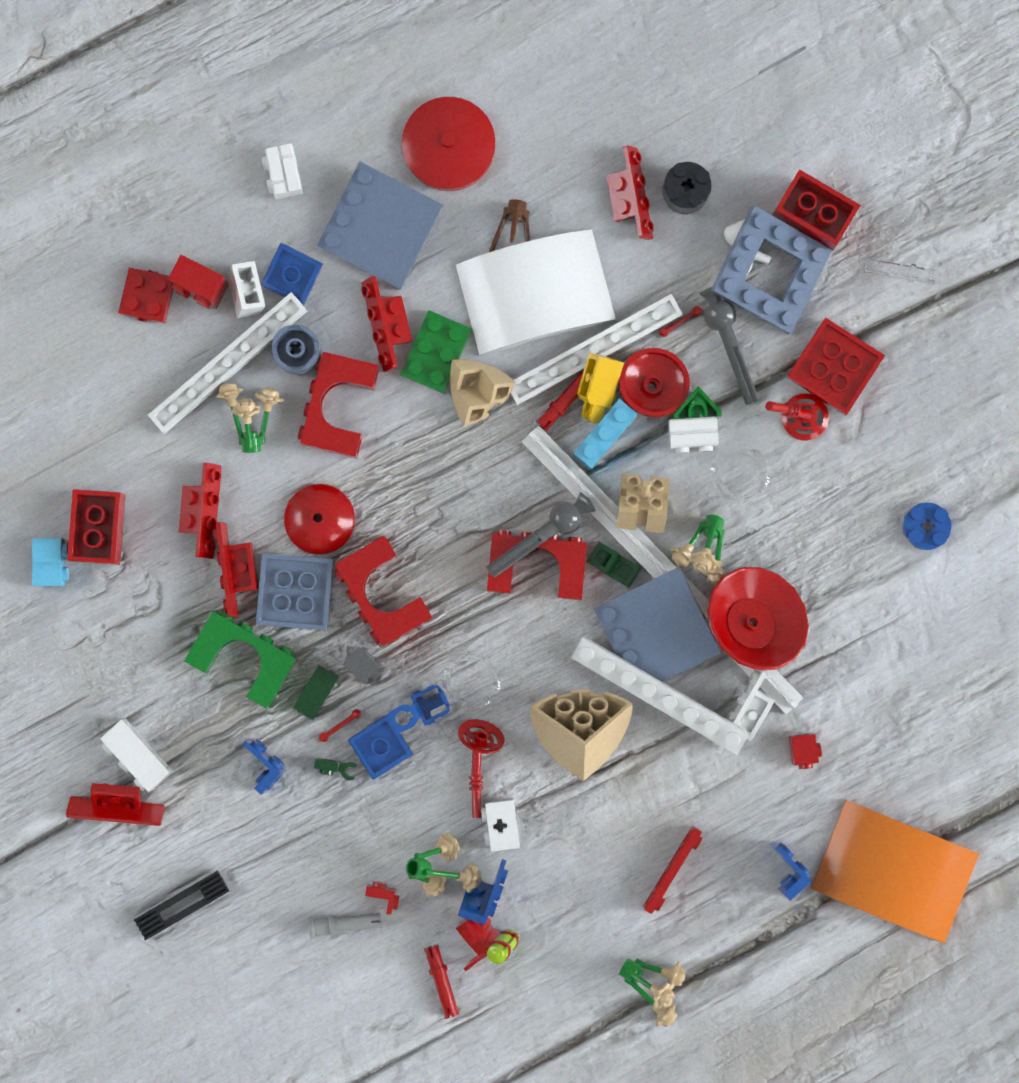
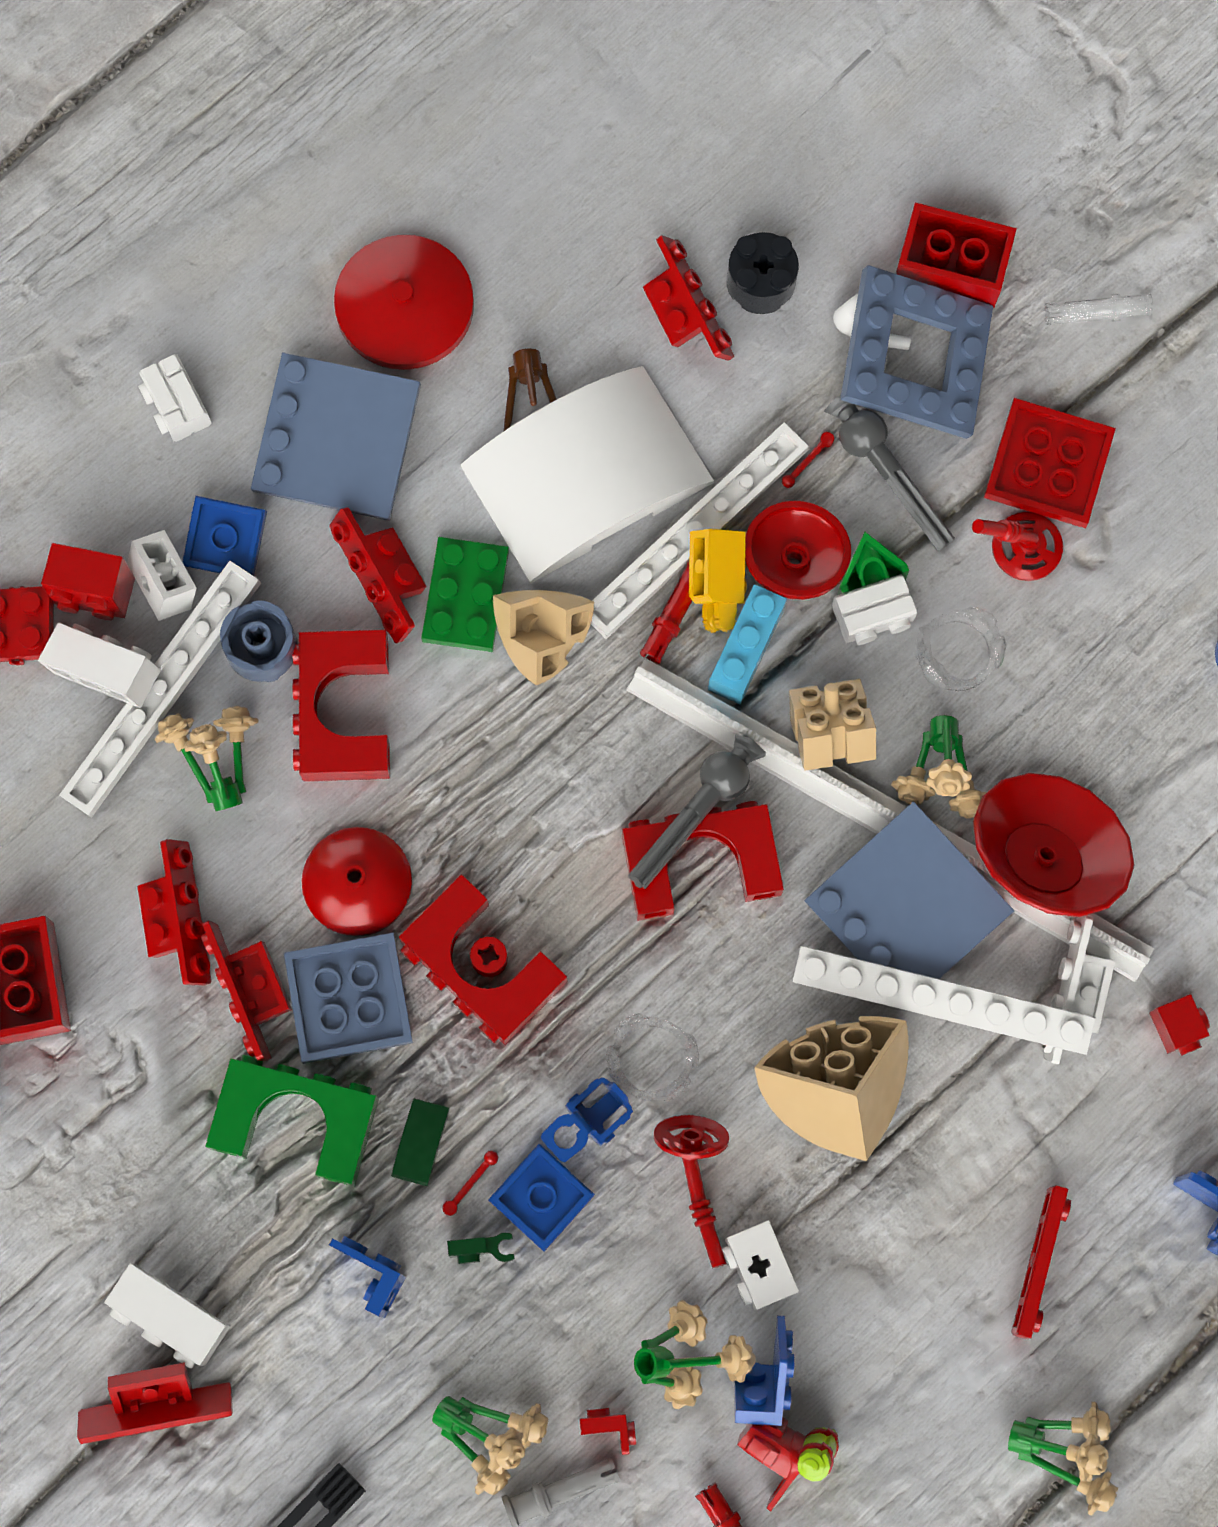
camera: 20 degrees left, 10 degrees down
(193, 337) = (100, 663): none -> white brick
(315, 895) = (504, 1450): none -> tan plant
(363, 666) = (483, 1078): dark grey brick -> none
(391, 592) = (493, 965): none -> red wheel
(613, 564) = (814, 830): dark green slope -> none

